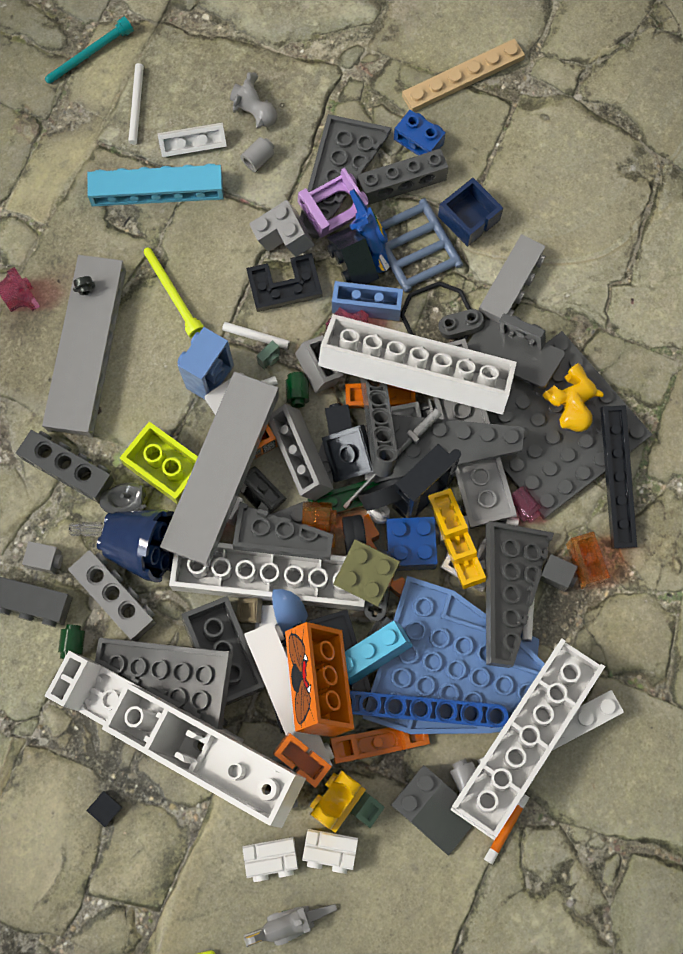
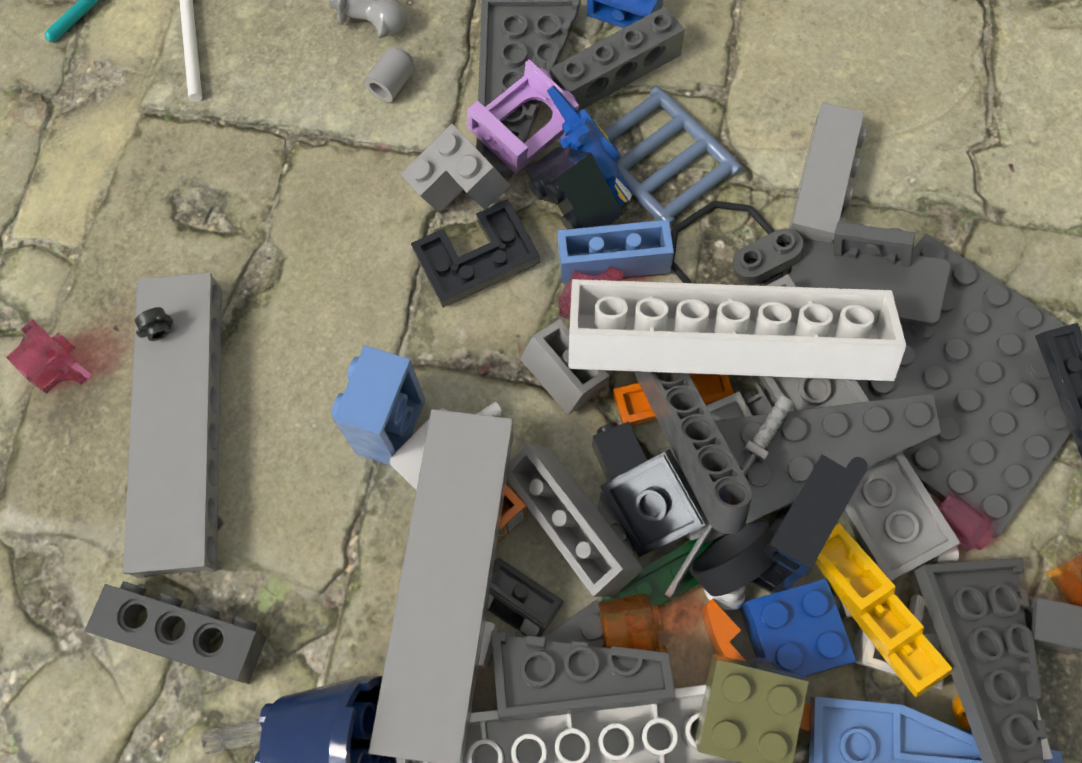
camera: 10 degrees left, 5 degrees down
(123, 498) = (287, 668): dark grey hat -> none
(155, 185) = (240, 151): medium azure brick -> none
(160, 461) = (339, 589): neon yellow brick -> none
(192, 139) = (285, 74): white plate -> none
(192, 324) = (342, 348): neon yellow piece -> none
(255, 335) = (450, 344): white bar -> none
(268, 355) = (478, 371): sand green plate -> none
(297, 389) = (537, 415): dark green brick -> none
(353, 529) = (697, 640): black tyre -> none
(470, 212) = (734, 87): dark blue piece -> none
(576, 414) = (987, 332): yellow animal -> none

